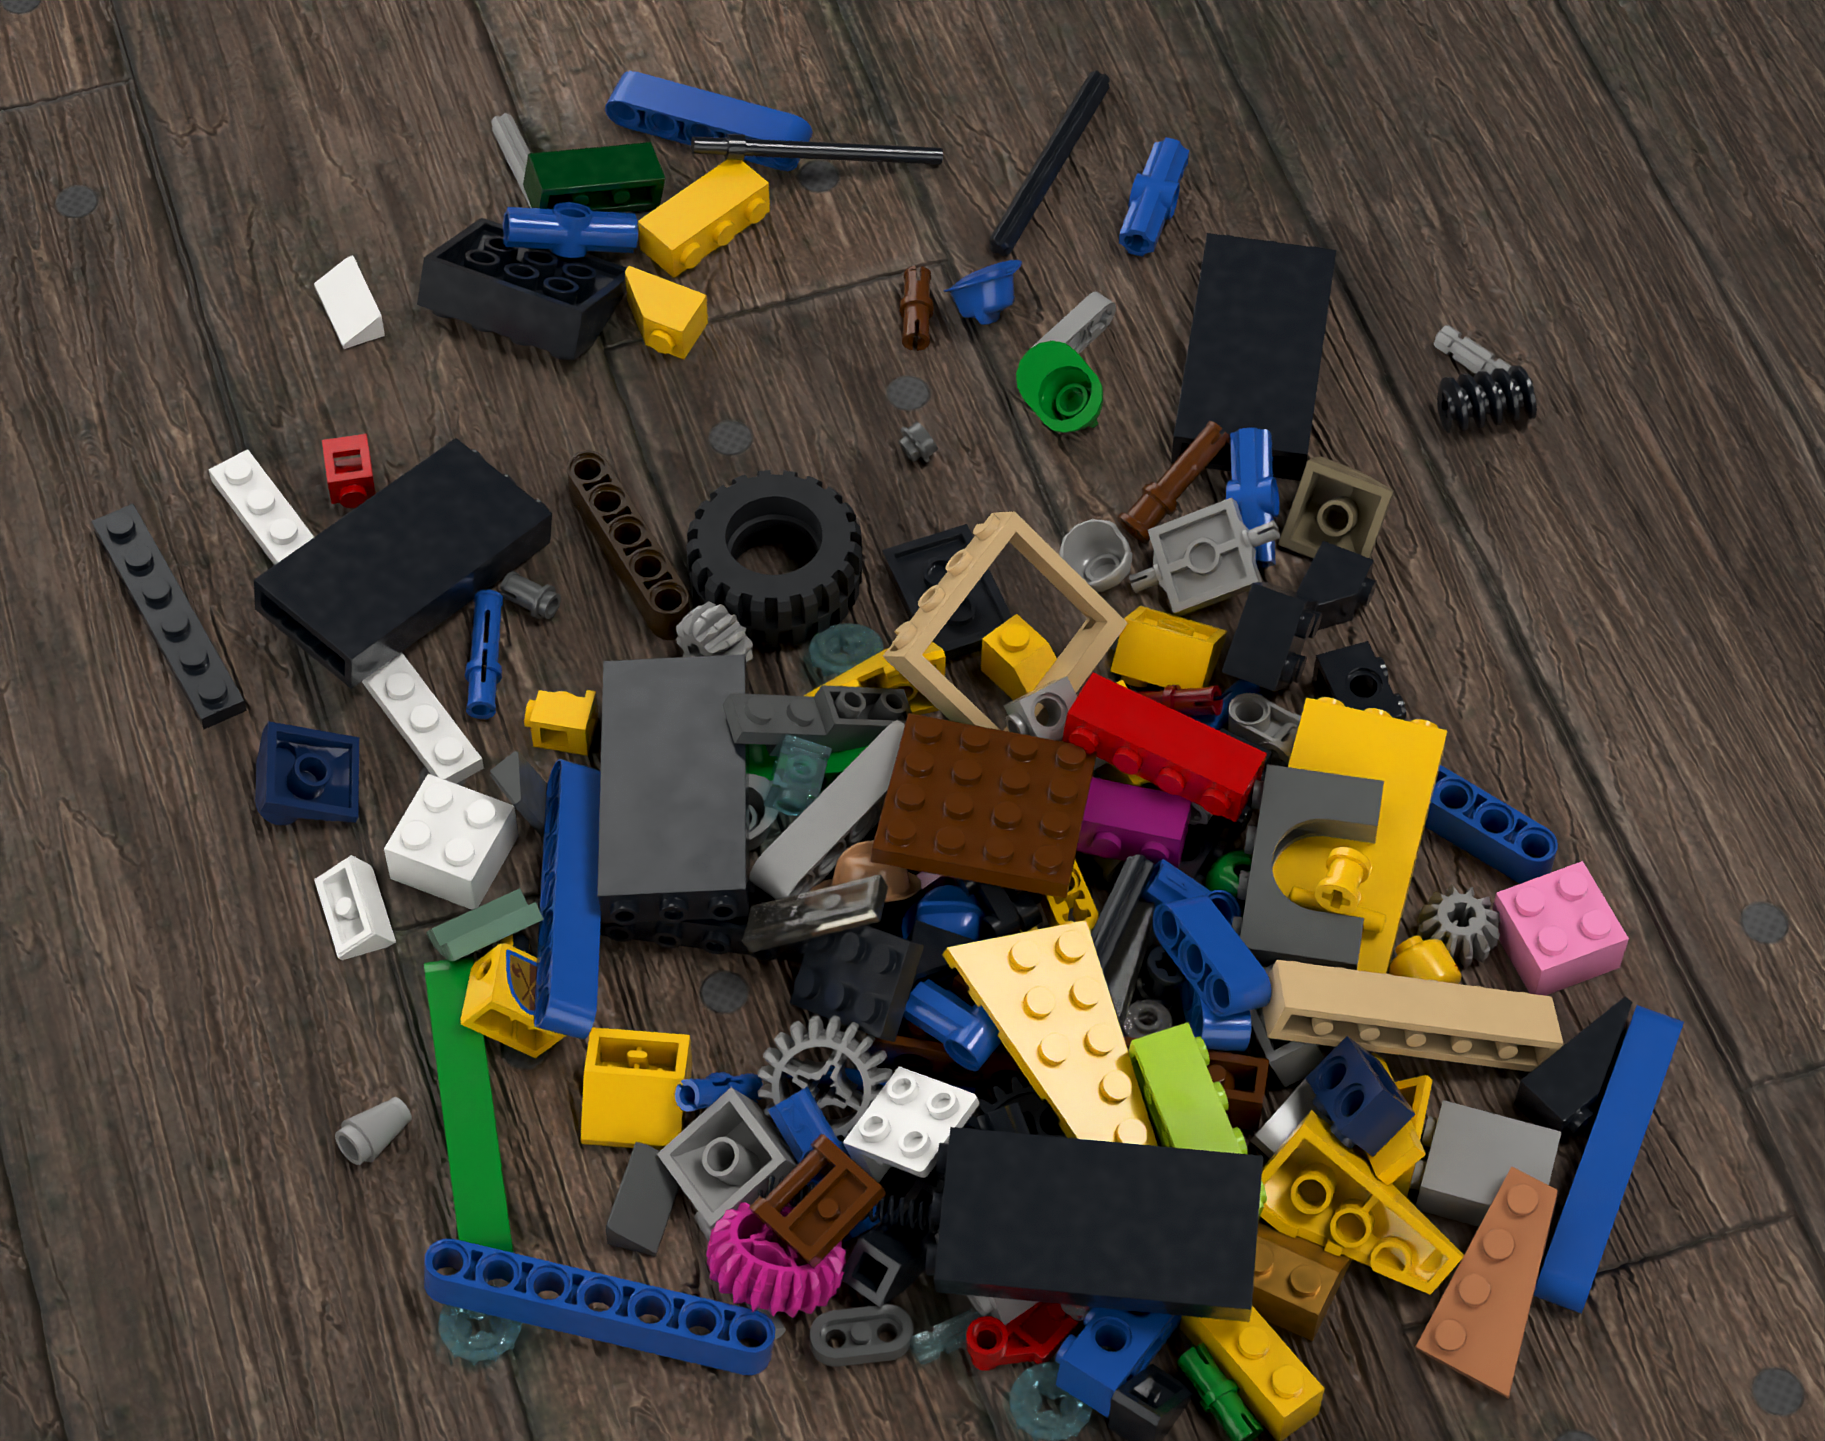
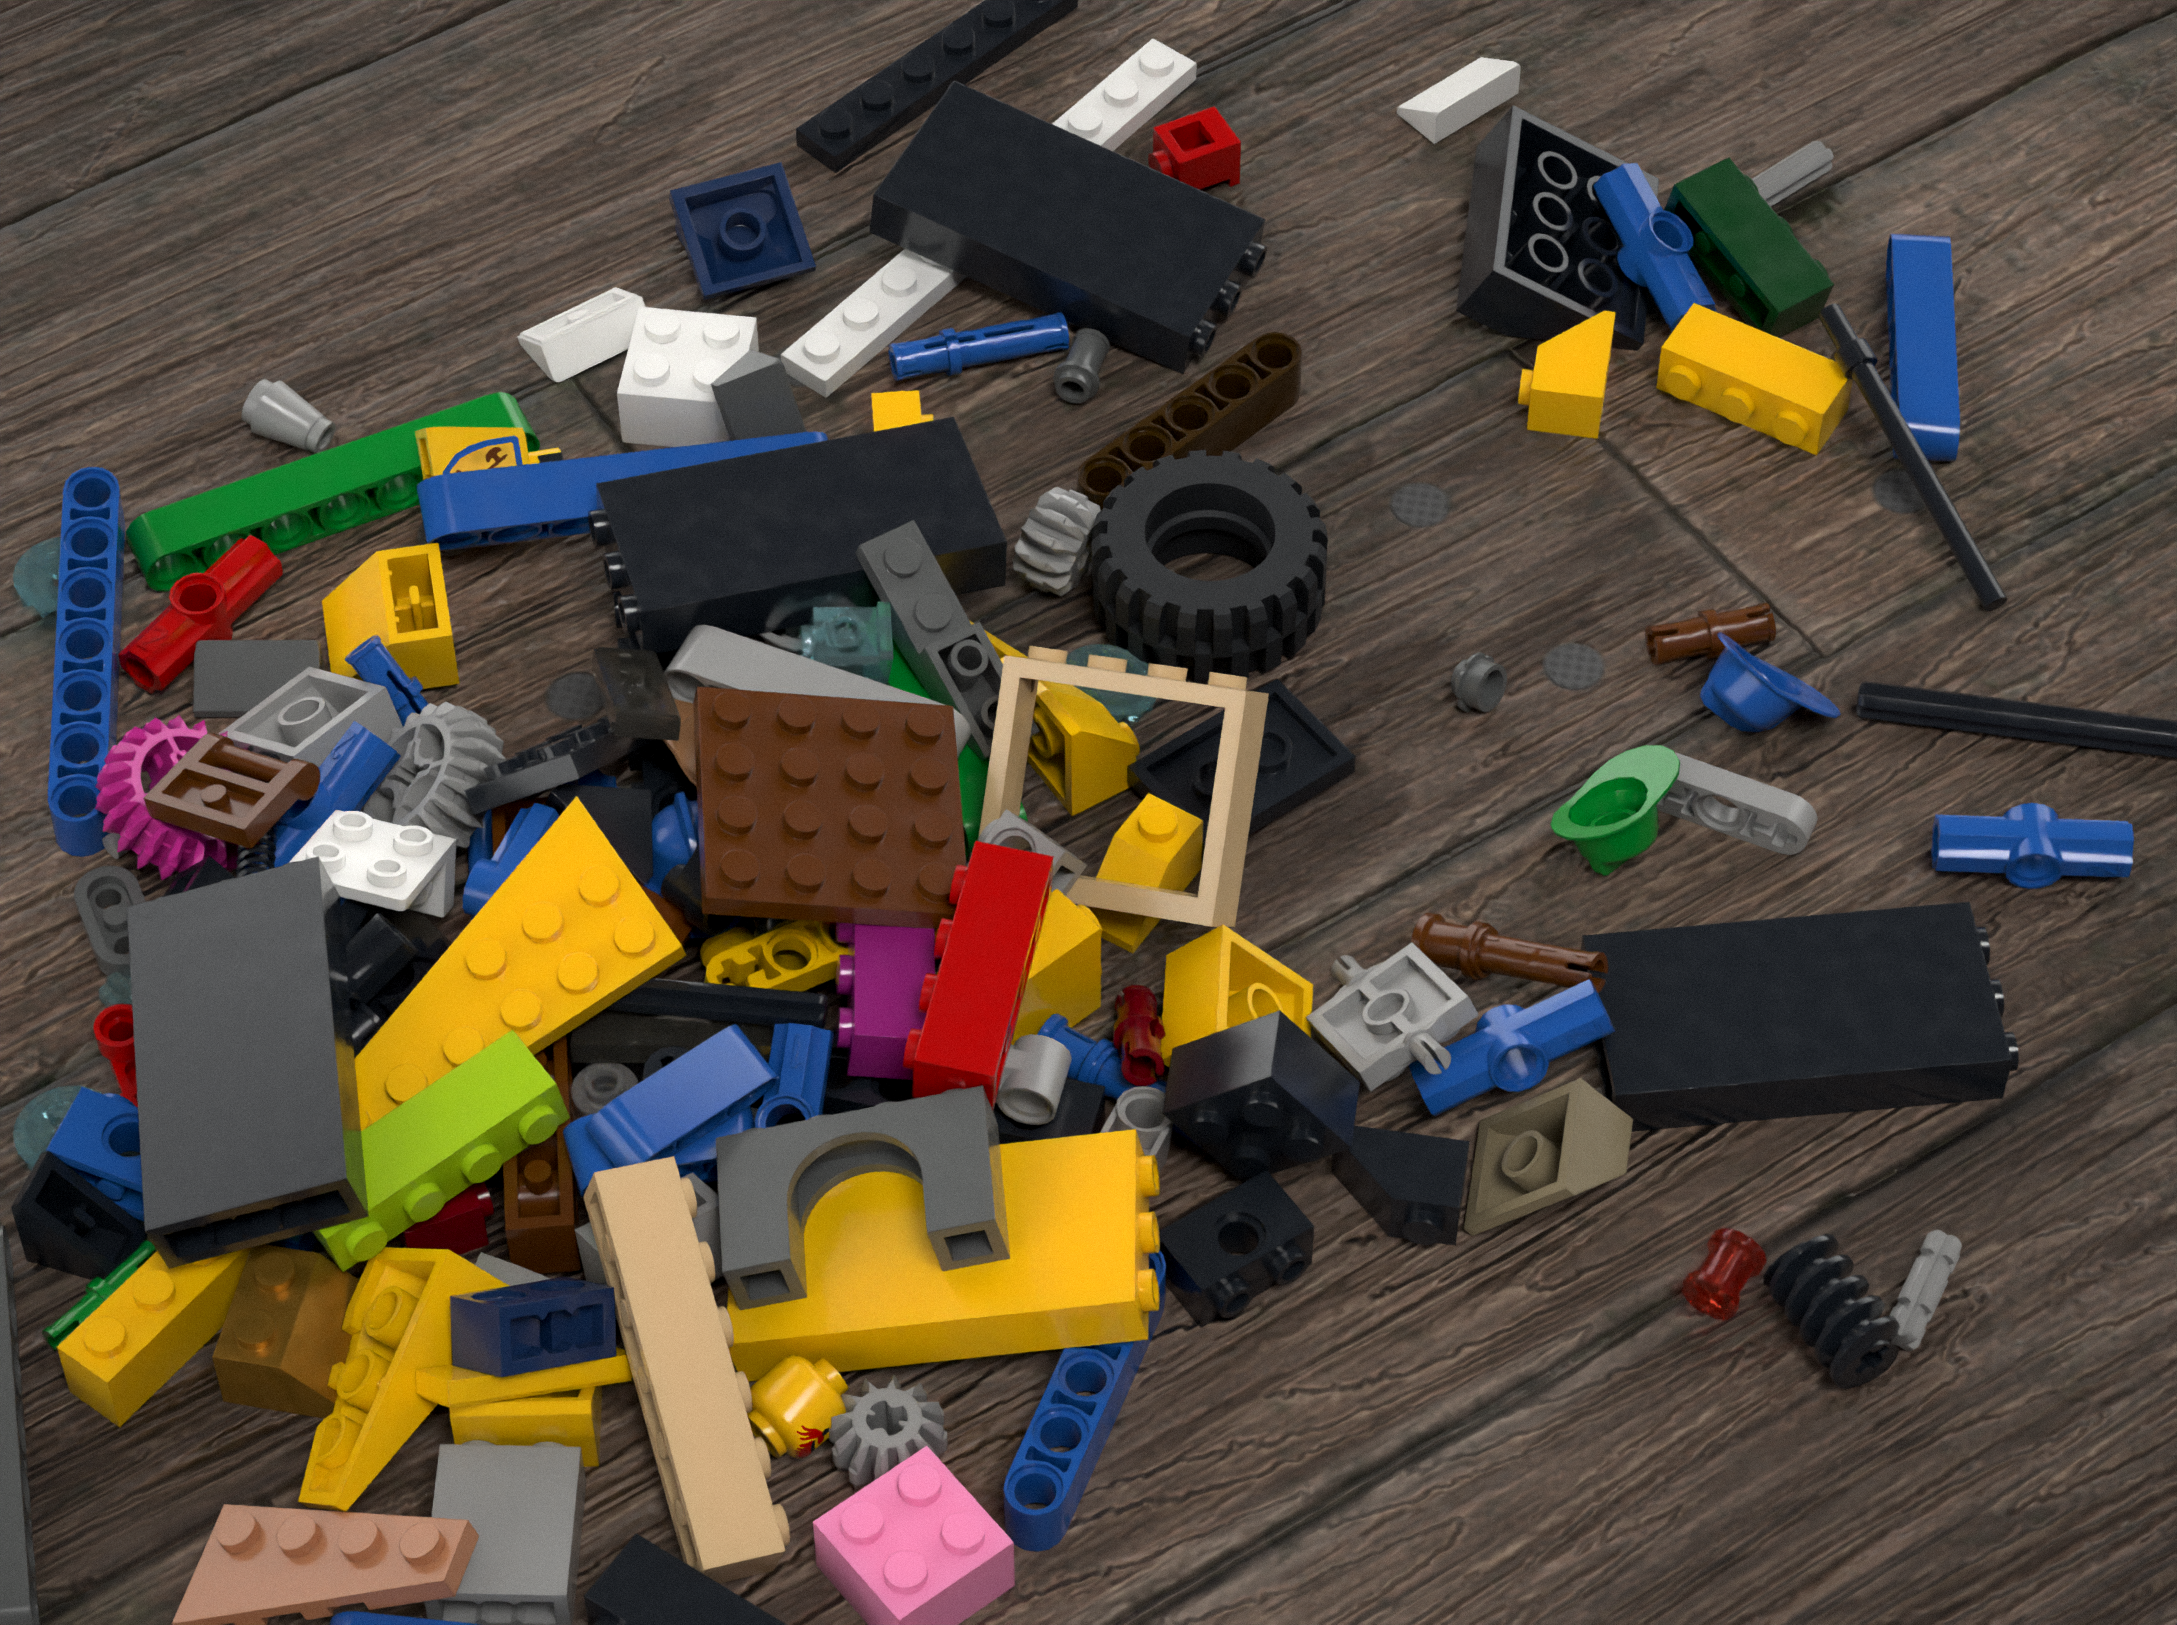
camera: 75 degrees right, 5 degrees down
(484, 925) = (562, 422): sand green slope -> none
(552, 1202) = (199, 610): none -> red piece
(1097, 553) = (1355, 904): light grey hair -> none
(1339, 890) = (825, 1222): yellow piece -> none
(1441, 447) = (1724, 1273): none -> clear red bush

